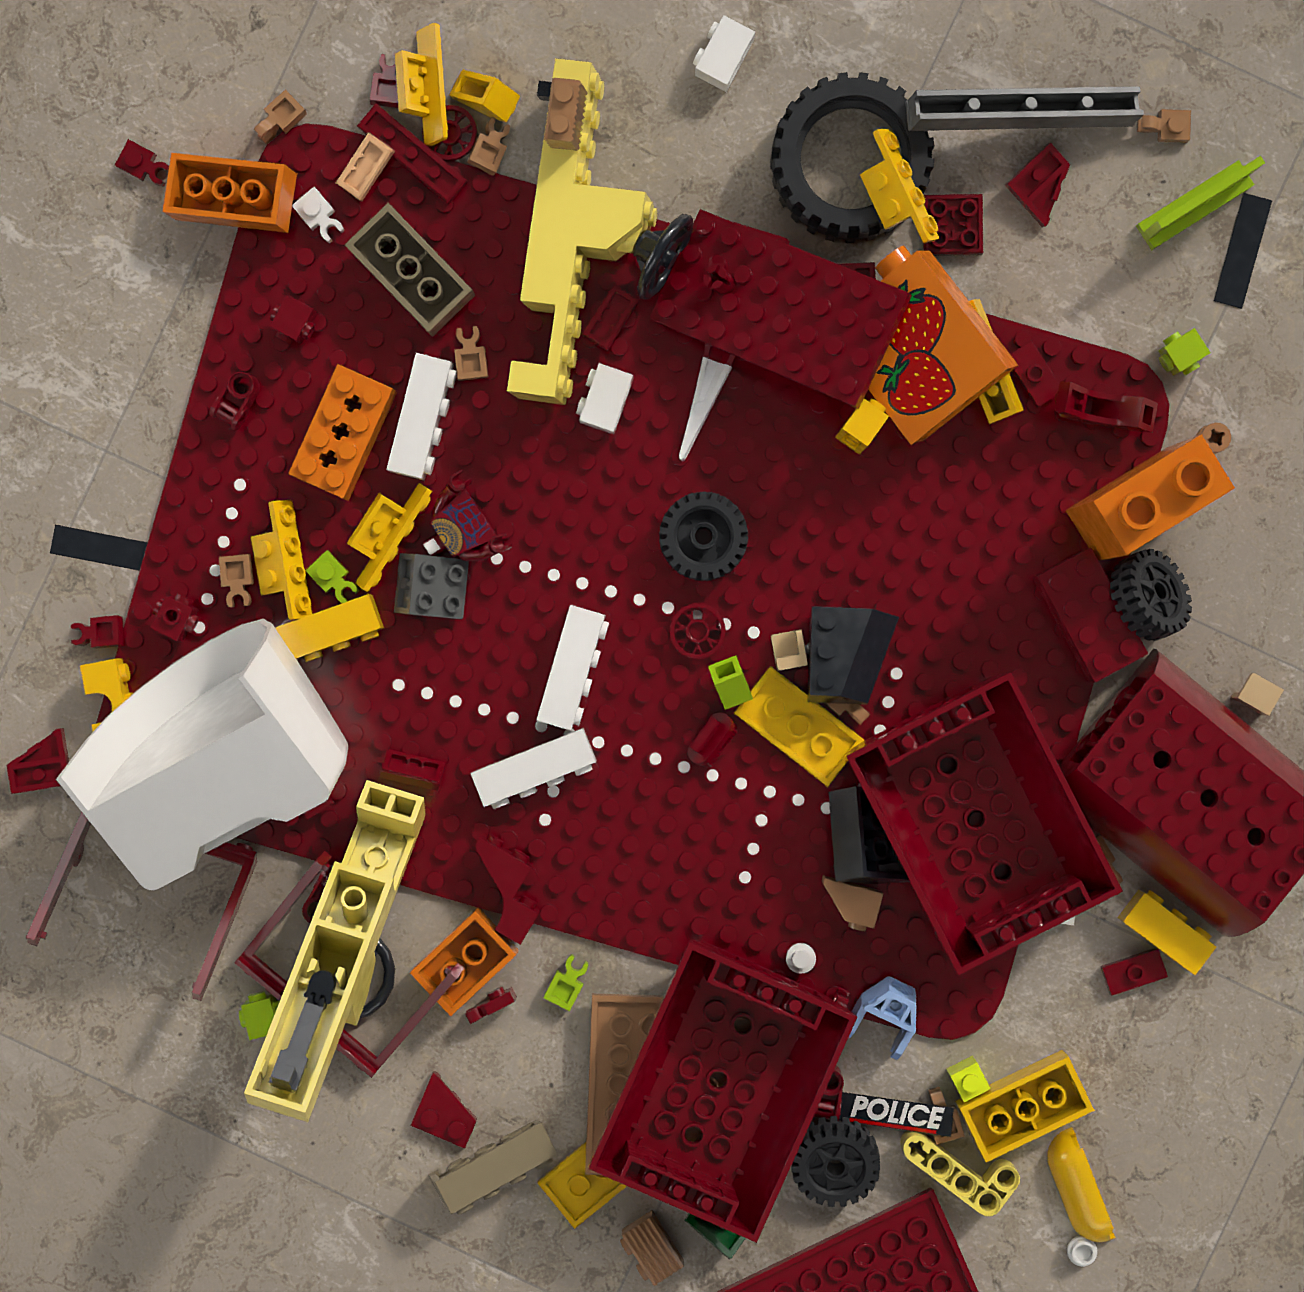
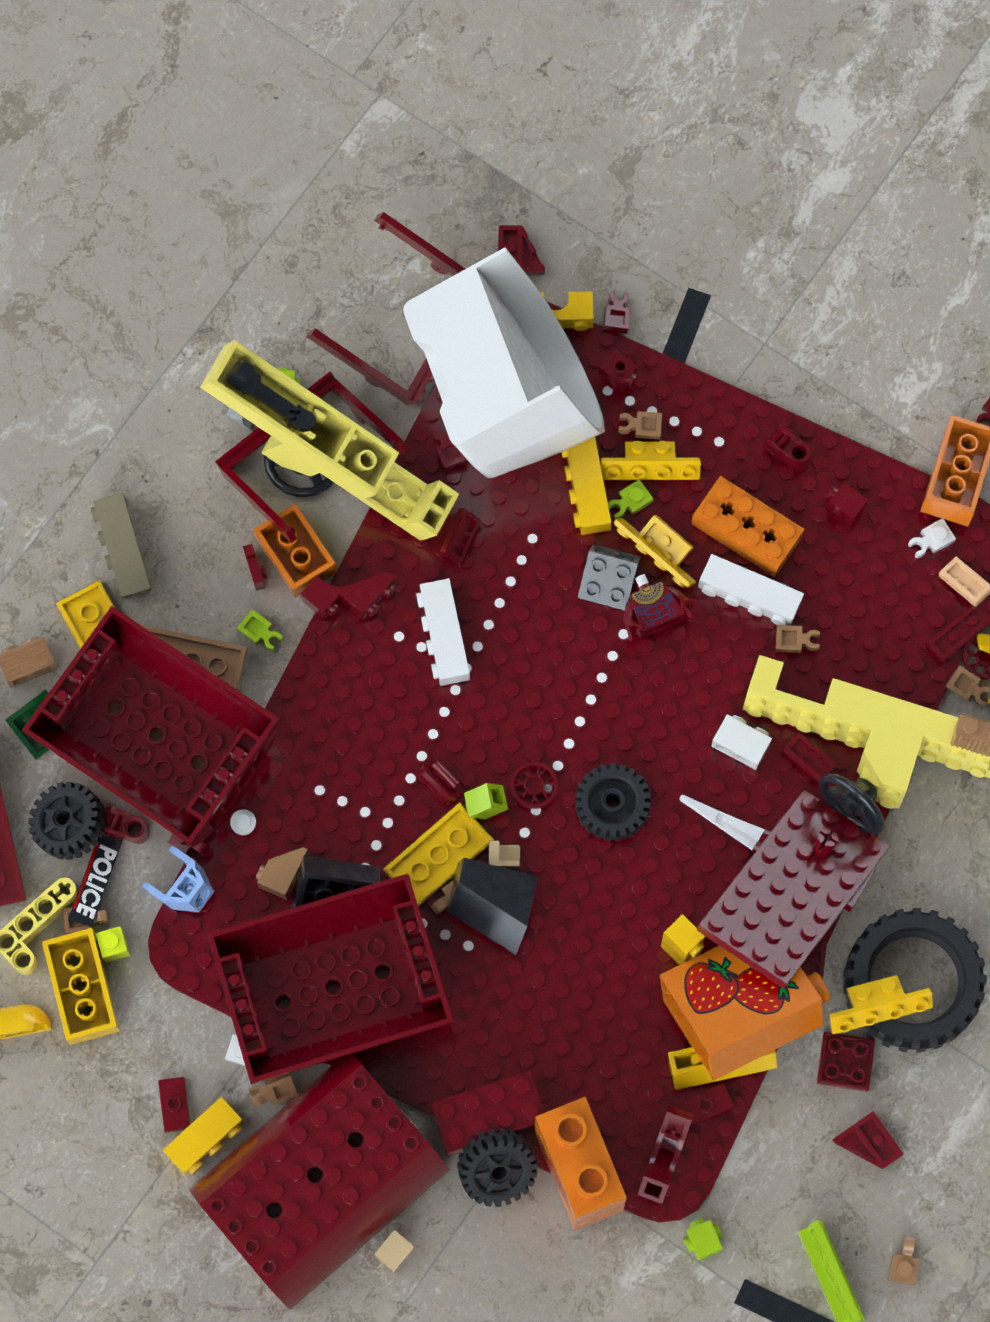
camera: 100 degrees right, 15 degrees down
(410, 250) = (875, 585): dark tan brick -> none
(444, 1114) = (171, 516): dark red wing -> none
(571, 668) = (521, 676): white brick -> none
(1023, 108) = (934, 1130): dark grey tile -> none
(1220, 431) = (625, 1257): medium nougat wheel -> none

